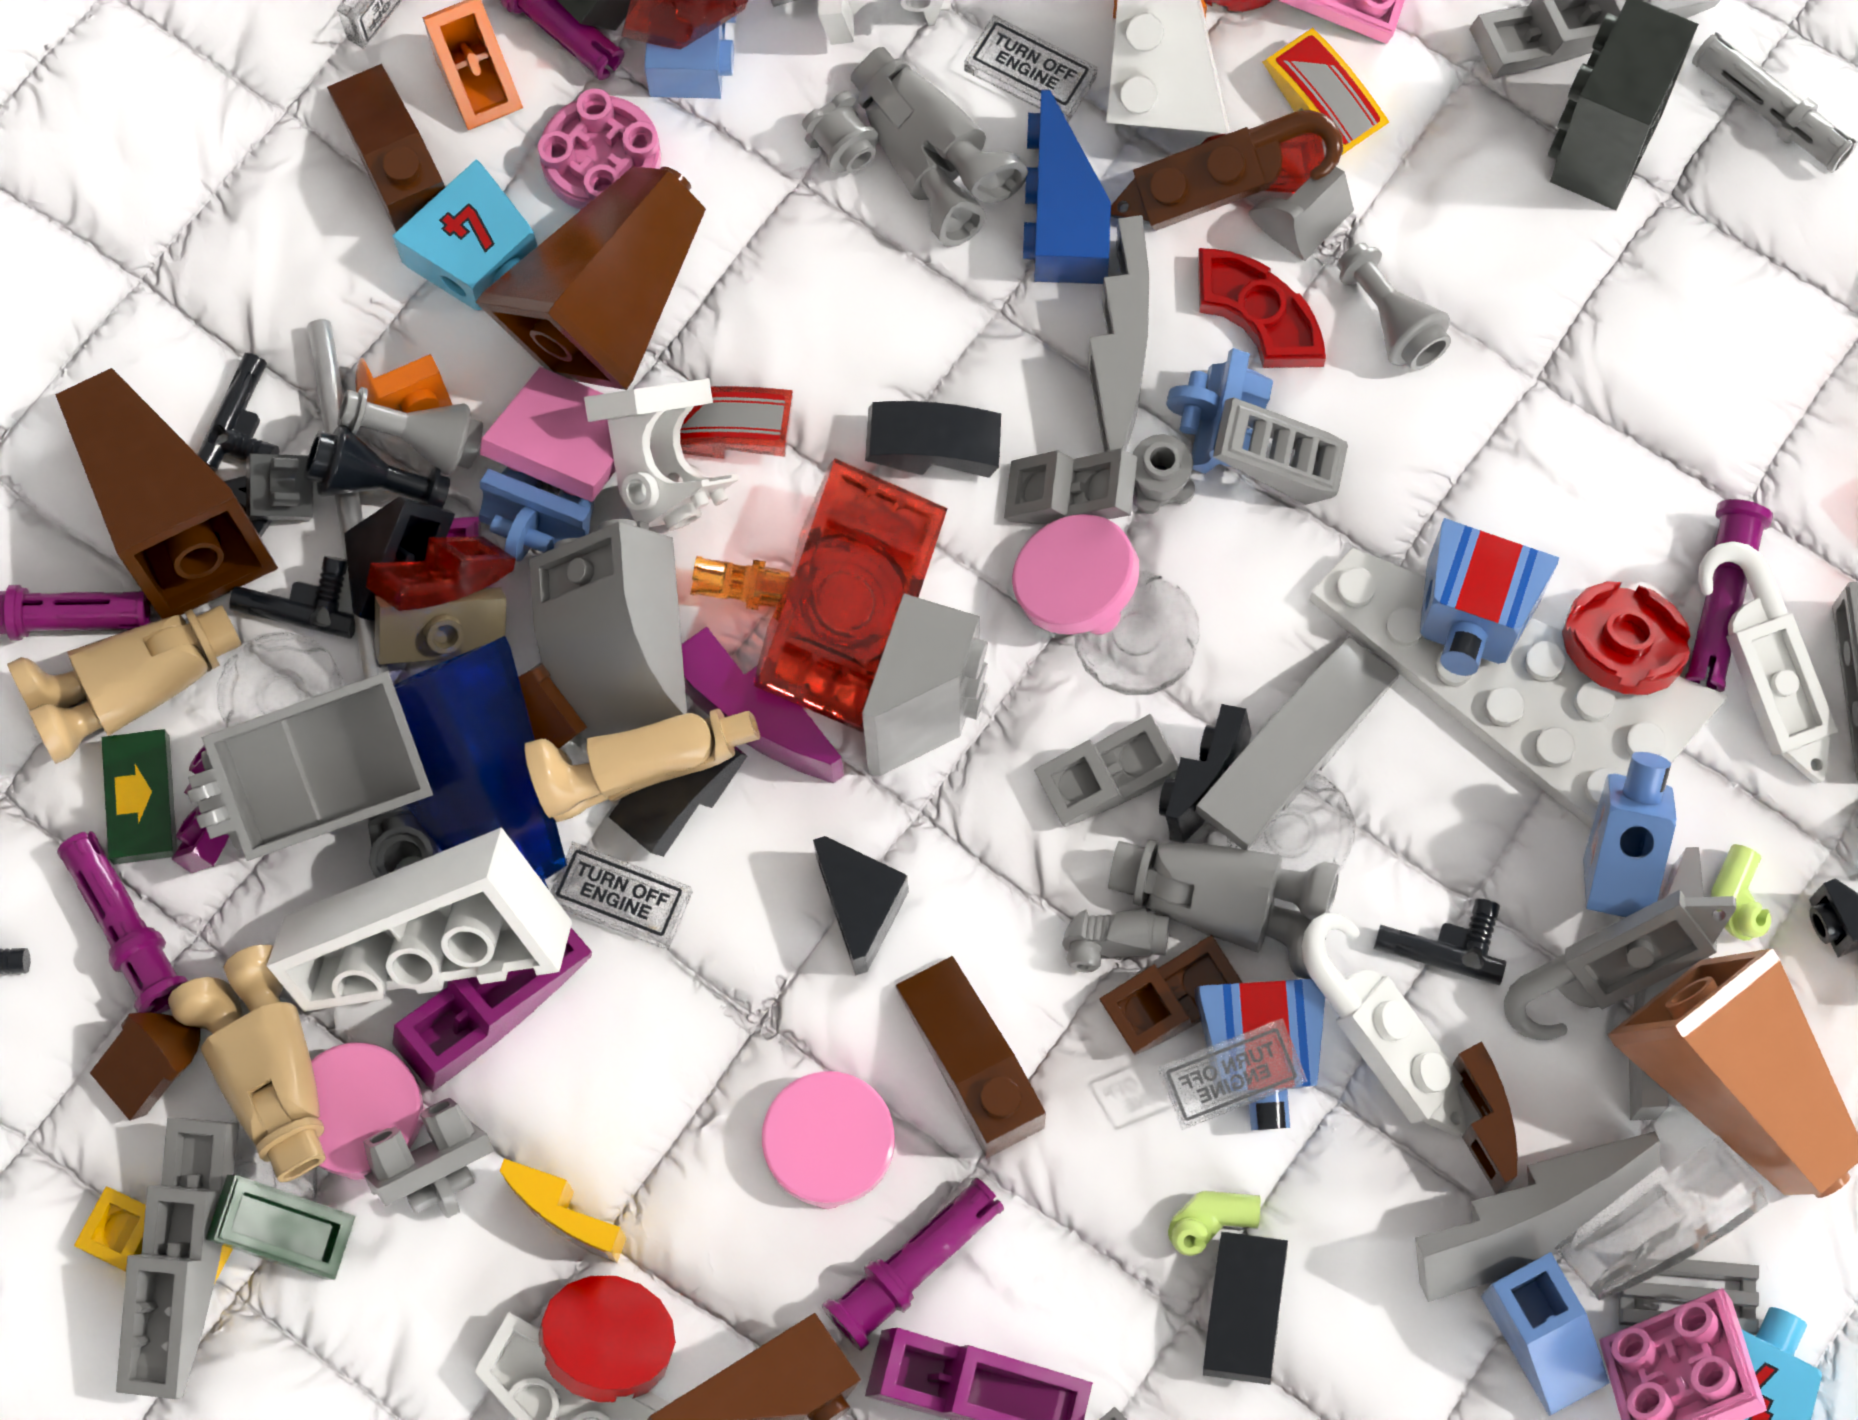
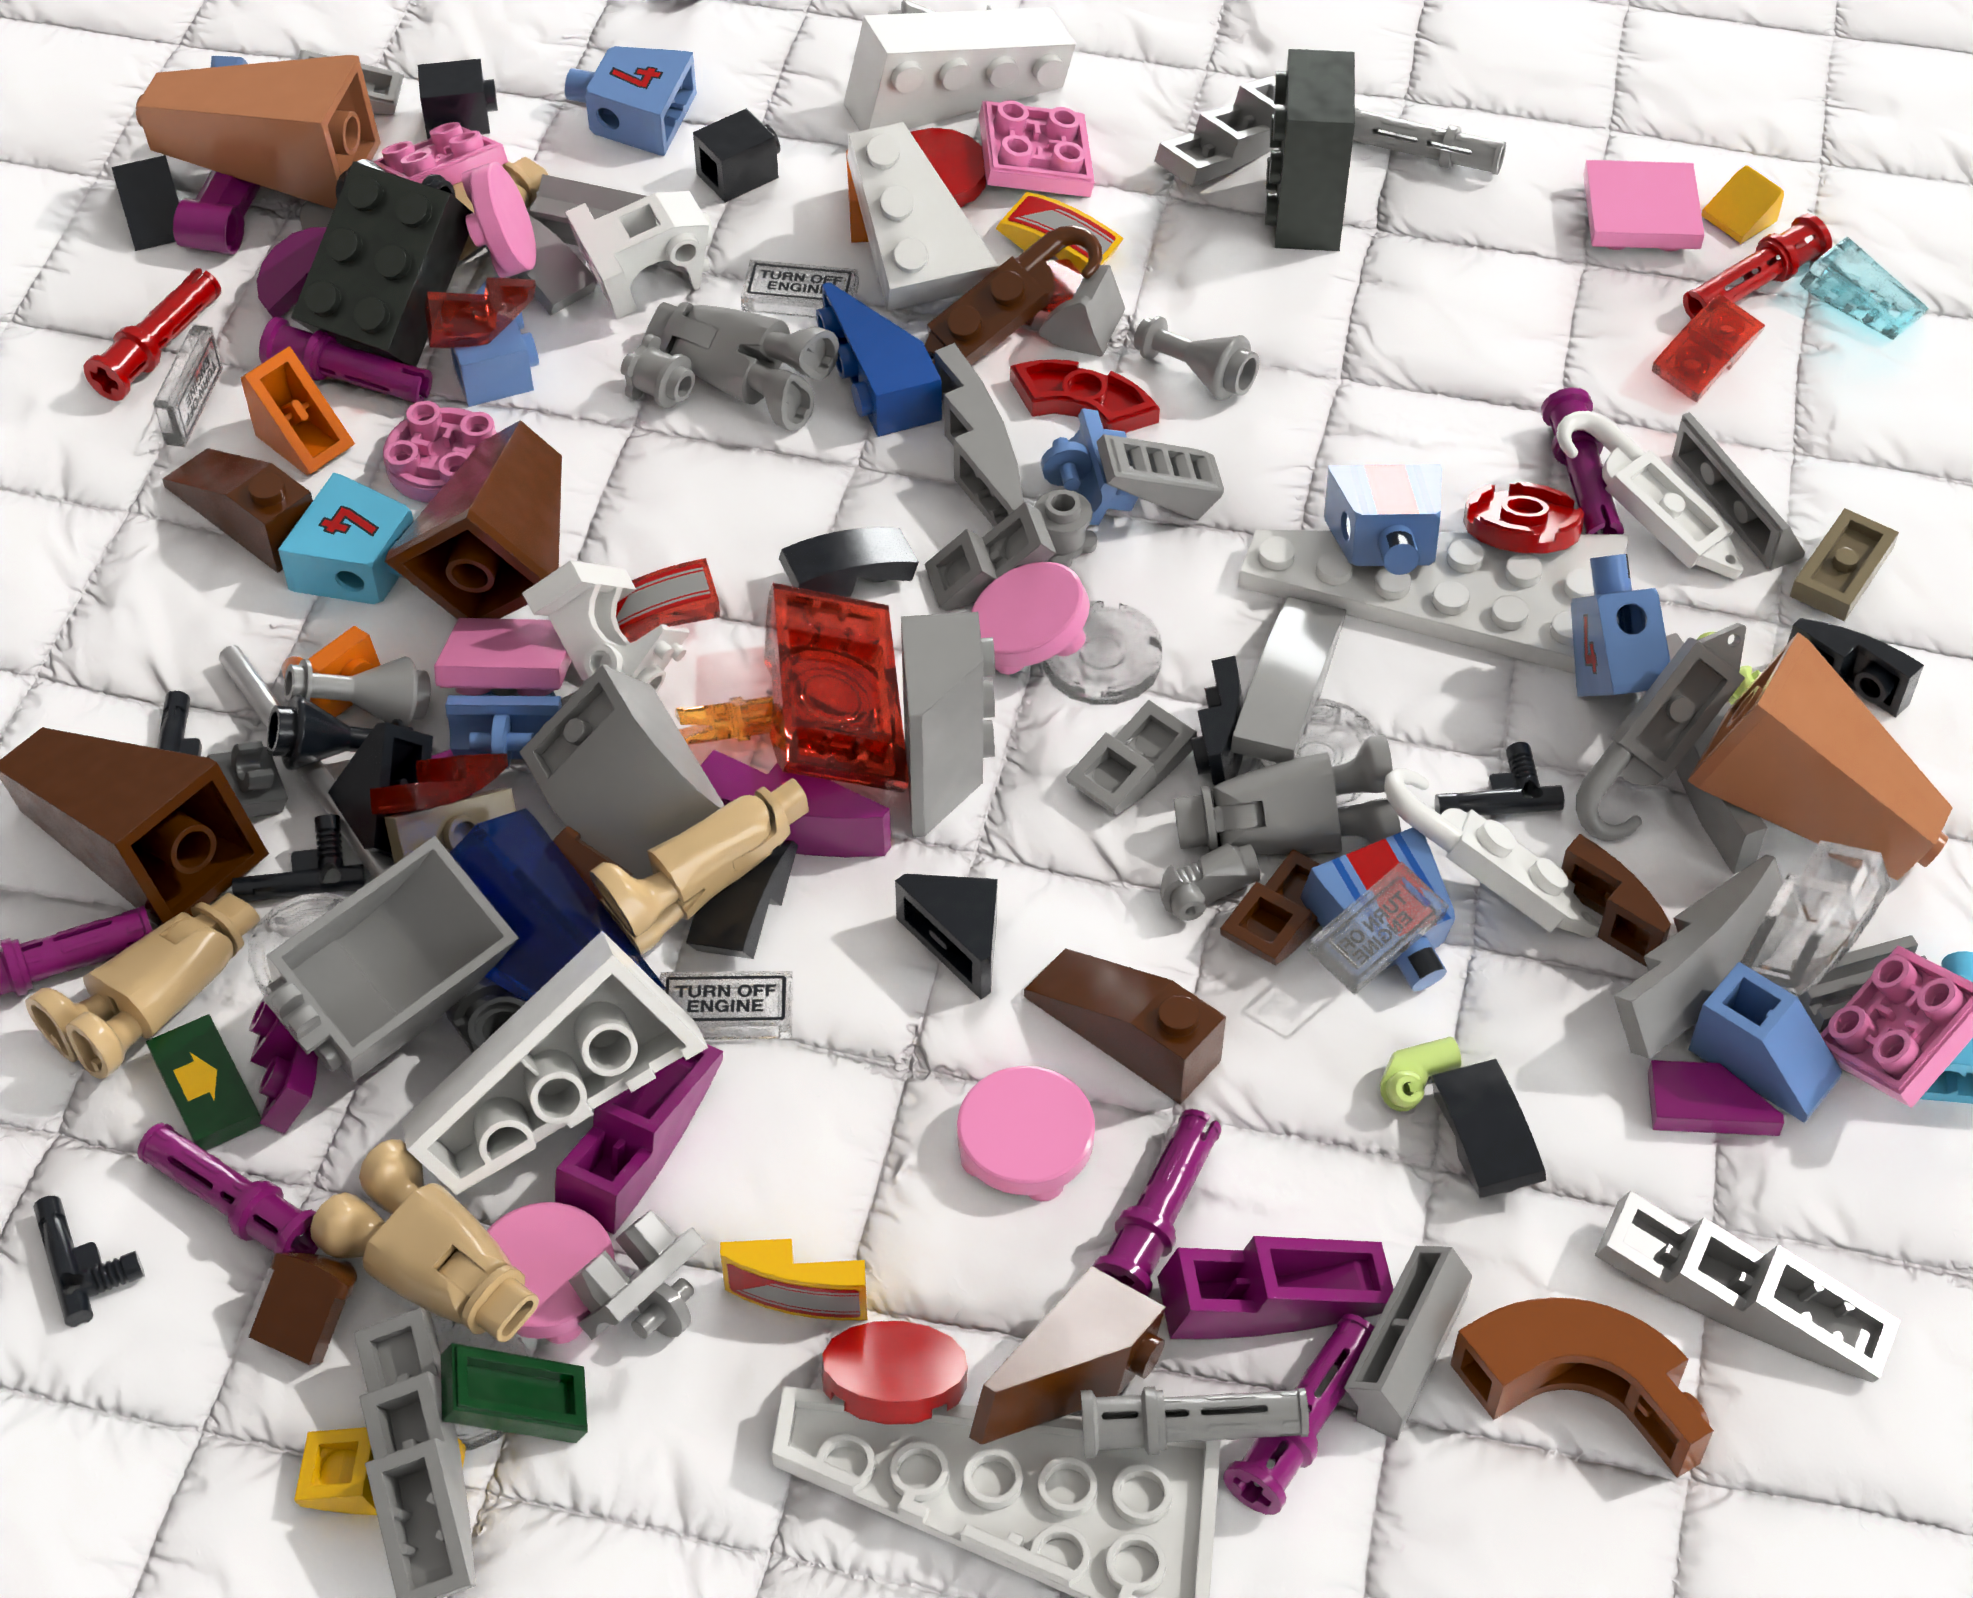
camera: 25 degrees left, 20 degrees down
(1468, 1355) = (1707, 1101): none -> magenta tile

